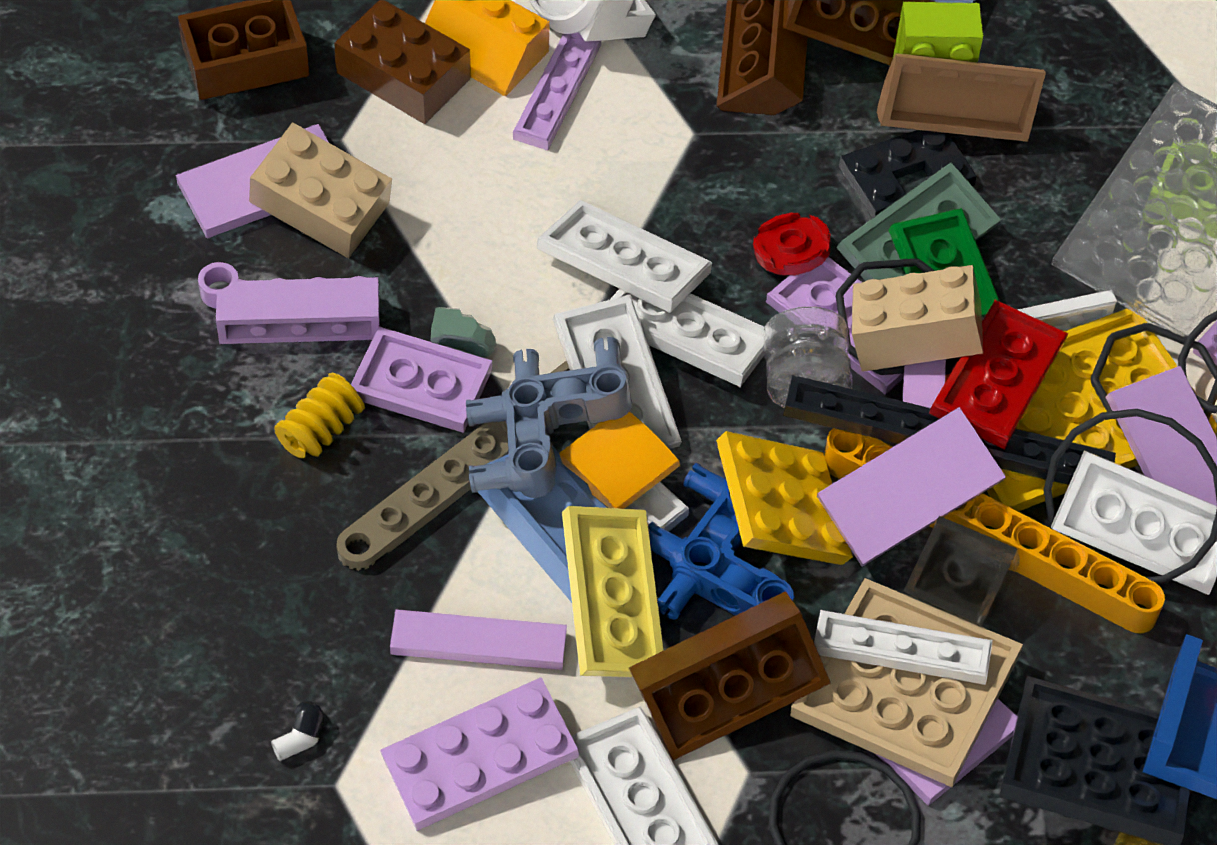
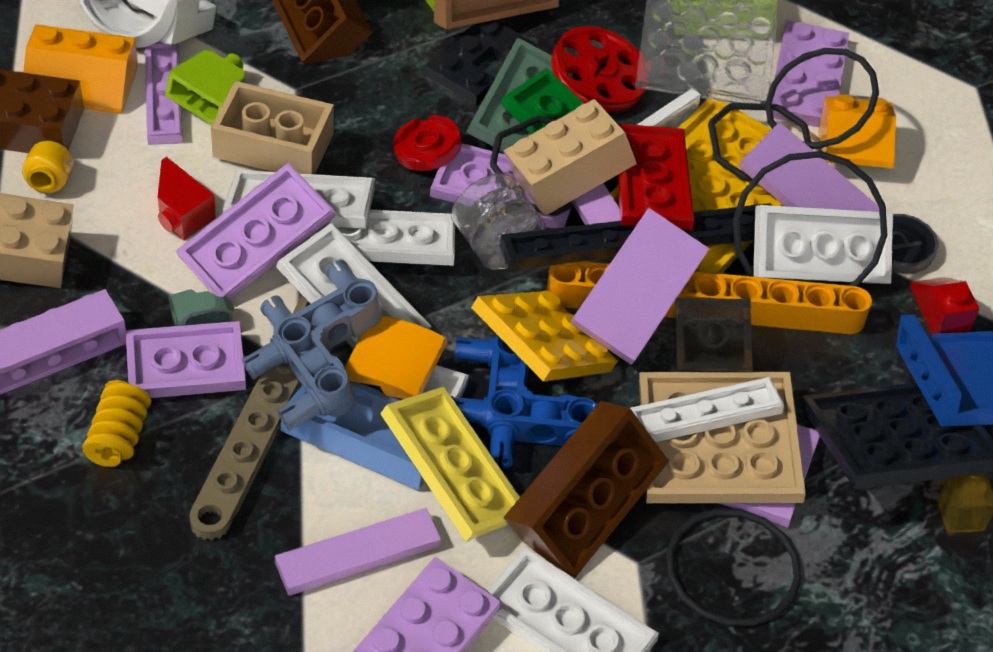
camera: 30 degrees left, 5 degrees down
(397, 128) = (47, 167): none -> yellow head
(506, 214) = (183, 201): none -> red slope
(556, 275) = (256, 233): none -> lavender tile
(600, 98) = (204, 82): none -> lime torso
(636, 171) = (271, 129): none -> tan brick
(1023, 214) = (589, 60): none -> red wedge

